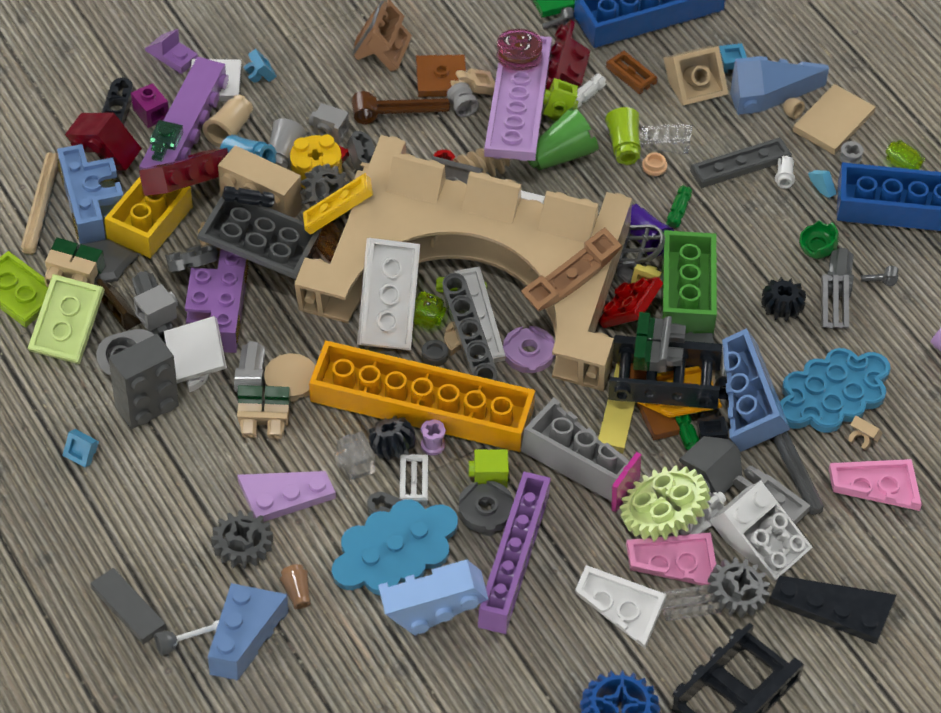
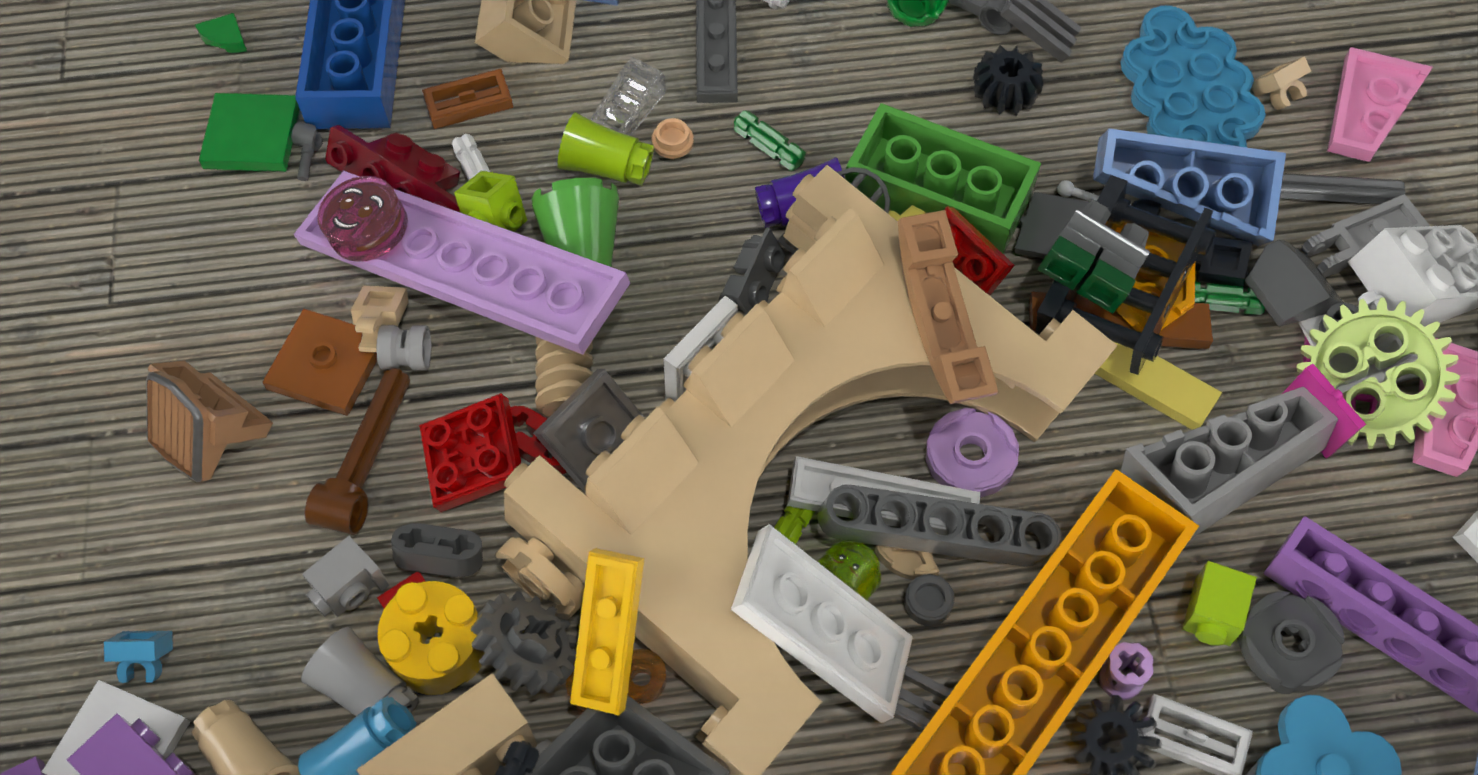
camera: 65 degrees left, 10 degrees up
(426, 142) = (470, 452): none -> red tile

